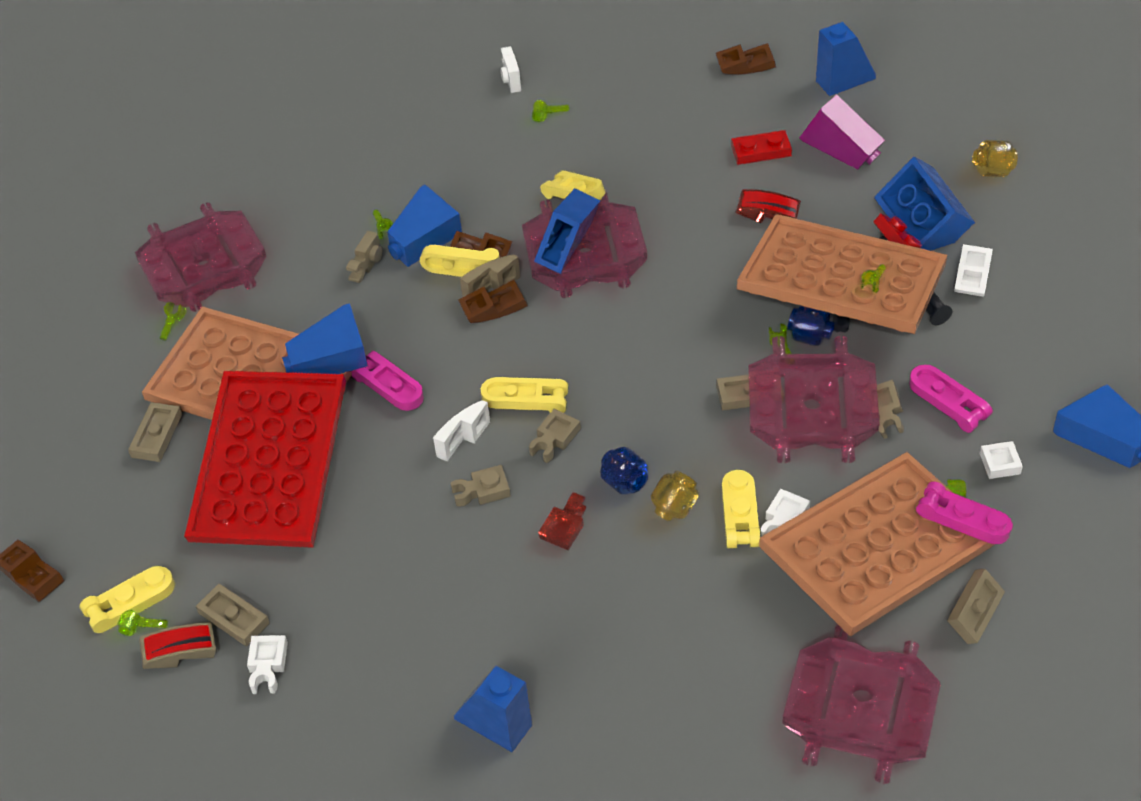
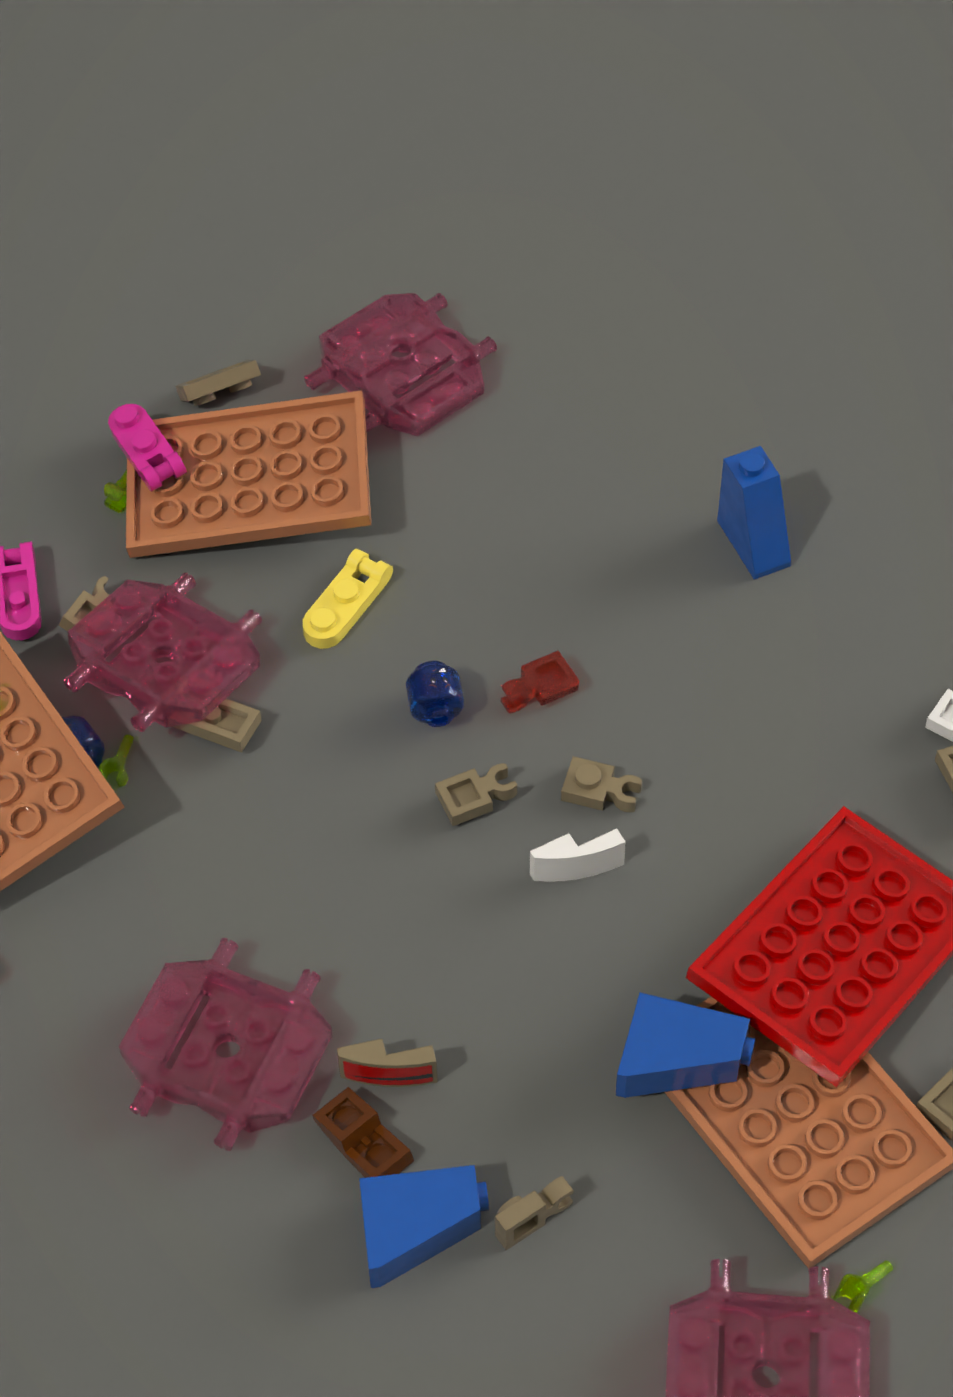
camera: 150 degrees left, 5 degrees up
(382, 224) = (465, 1274): clear neon green hand -> none
(390, 382) = (616, 978): dark pink plate -> none
(454, 260) = (406, 1117): light yellow plate -> none
(486, 306) = (408, 1031): reddish brown slope -> none
(525, 393) = (468, 868): light yellow plate -> none
(541, 110) = (81, 1358): clear neon green hand -> none
(566, 230) = (245, 1020): blue slope -> none
(567, 181) = (167, 1134): light yellow plate -> none
(674, 496) = (405, 632): clear yellow head -> none
(782, 509) = (307, 564): white plate -> none
(1001, 460) = (42, 495): white plate -> none

